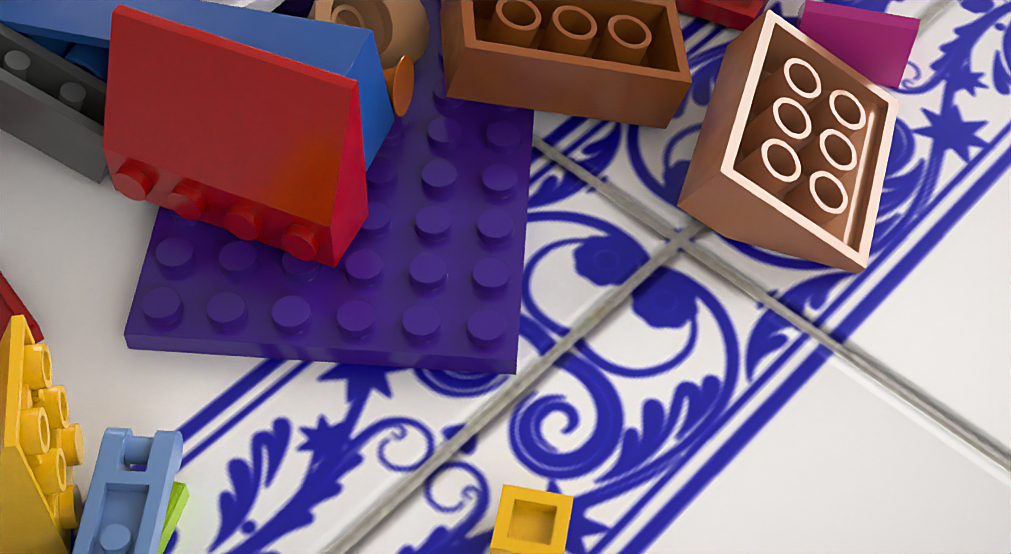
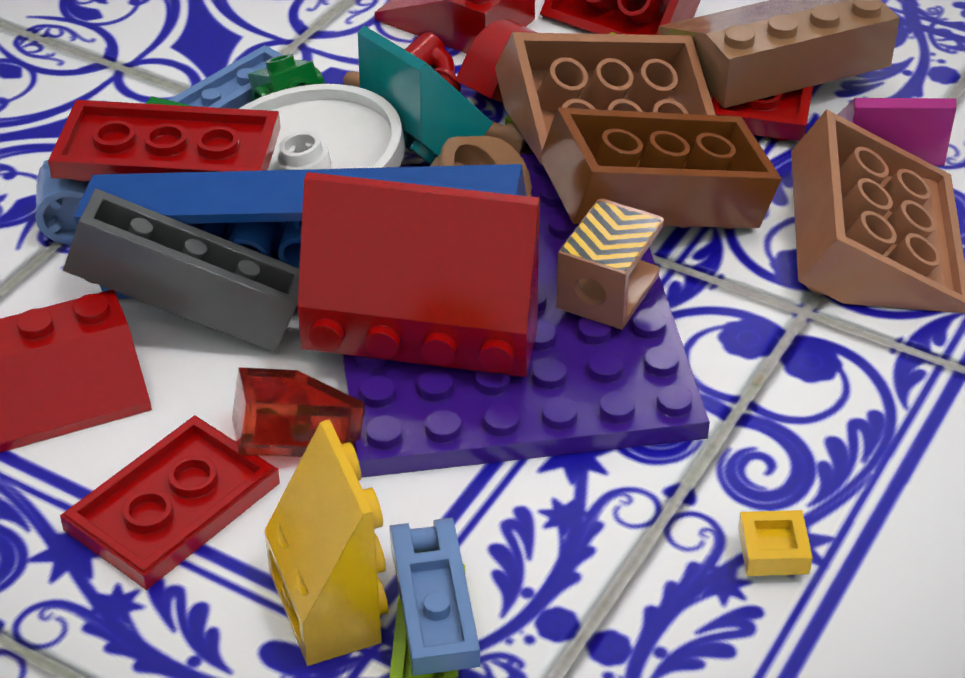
camera: 10 degrees left, 10 degrees down
(68, 268) = (282, 409): none -> clear red slope
(456, 153) = (602, 265): none -> piece

